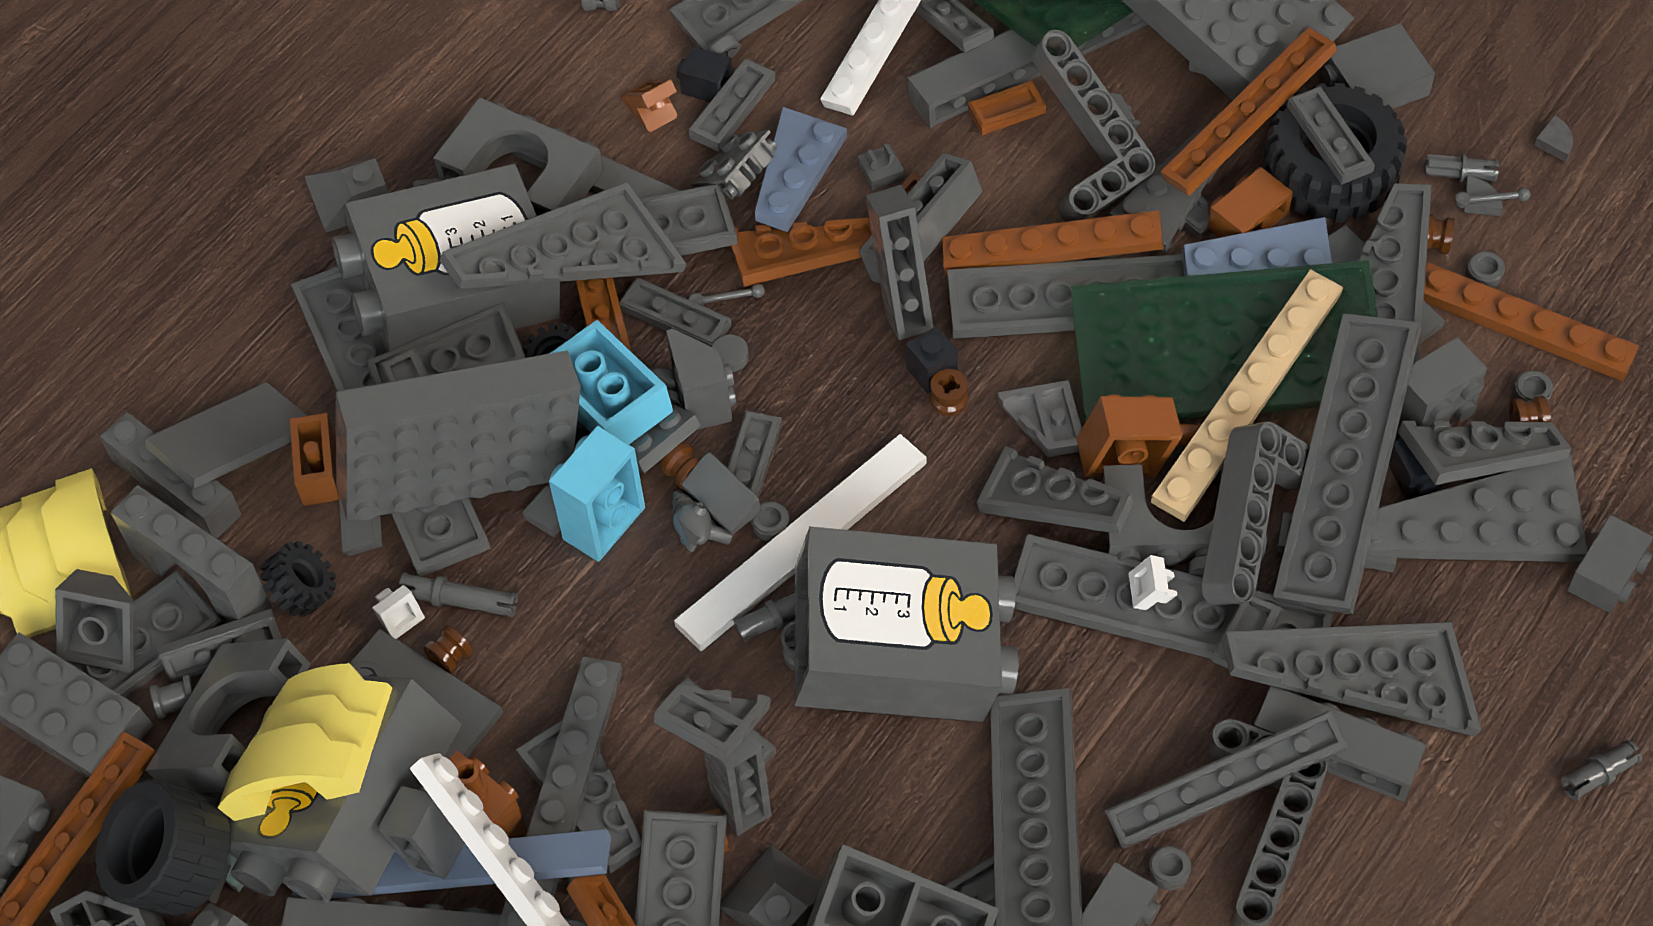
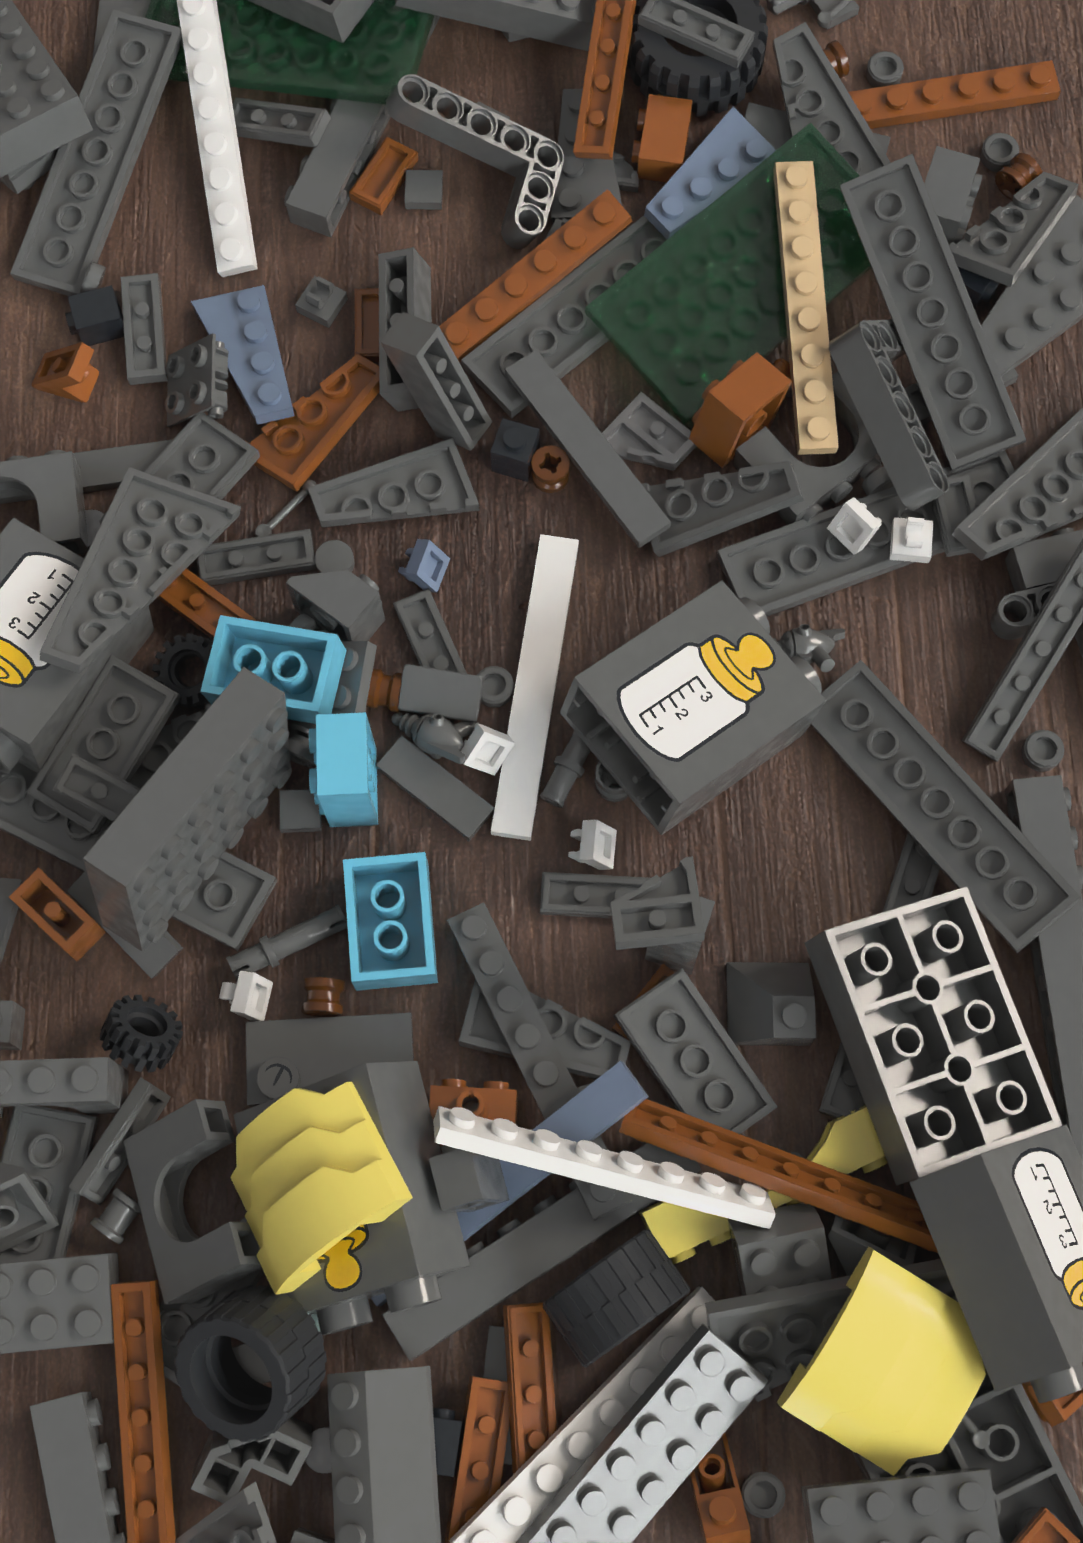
camera: 40 degrees left, 15 degrees up
(540, 628) = (390, 921): none -> medium azure brick
(661, 563) = (435, 788): none -> dark grey tile
(720, 557) = (486, 749): none -> white tile
(745, 680) = (596, 844): none -> white tile
(793, 399) = (425, 565): none -> sand blue tile
(827, 334) = (404, 487): none -> dark grey wing
(986, 393) = (587, 448): none -> dark grey tile
(1028, 135) = (424, 189): none -> dark grey tile
(1038, 652) = (811, 645): none -> dark grey piece
(1191, 627) = (911, 539): none -> white tile

